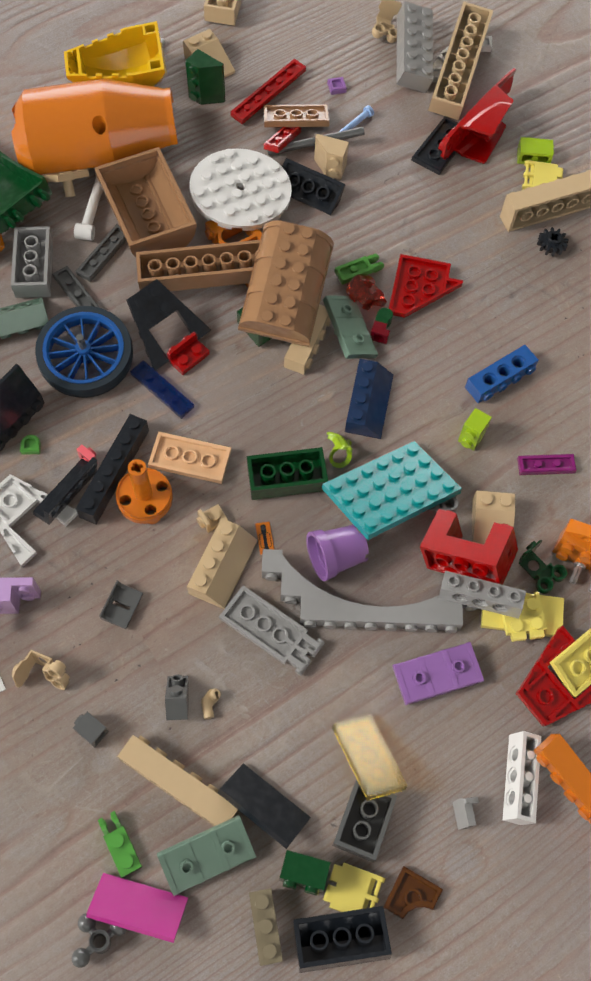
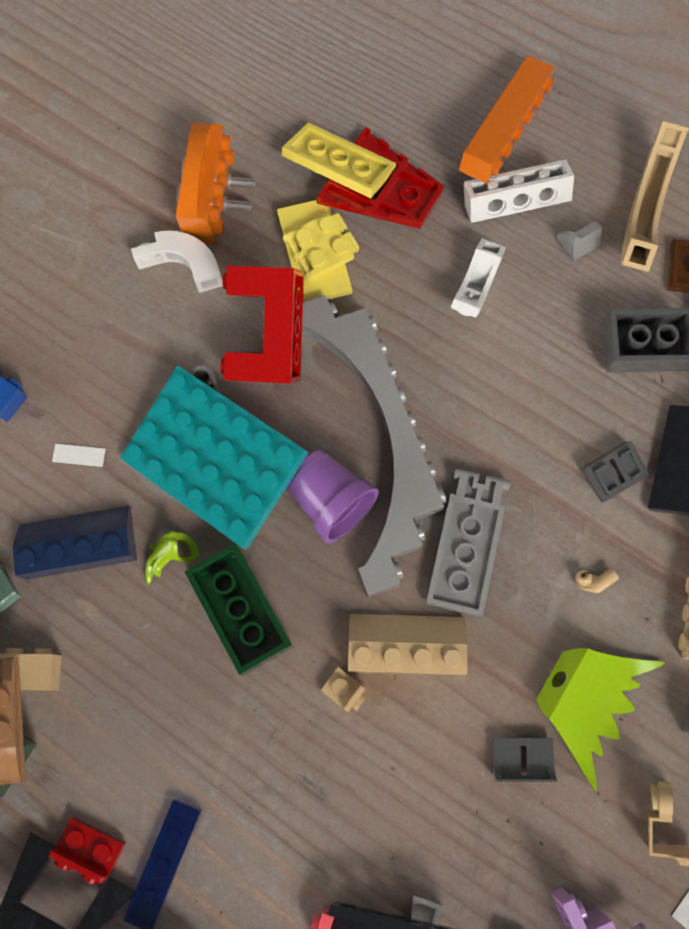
camera: 105 degrees left, 10 degrees up
(112, 469) = (328, 875): black brick -> none
(140, 660) = (588, 699): none -> lime piece
(141, 489) = (351, 794): orange piece -> none
(177, 697) = (611, 624): dark grey slope -> none
(189, 457) = (264, 766): light nougat plate -> none
(264, 536) = (341, 606): orange sticker -> none
(283, 763) = (603, 476): none -> dark grey piece
(369, 757) = (578, 359): clear yellow tile -> none
(426, 420) = (78, 455): none -> white sticker
(438, 673) = (429, 317): medium lavender container -> none
(457, 716) = (478, 278): none -> white arch
(474, 429) = (77, 380): lime brick -> none
(477, 879) = (642, 226): none -> tan arch
(482, 594) = (322, 291): light grey brick -> none
(491, 508) = (205, 321): tan slope -> none
(545, 573) = (249, 242): dark green piece -> none
(546, 464) = (93, 283): magenta tile -> none
(547, 529) = (183, 249): none -> white arch

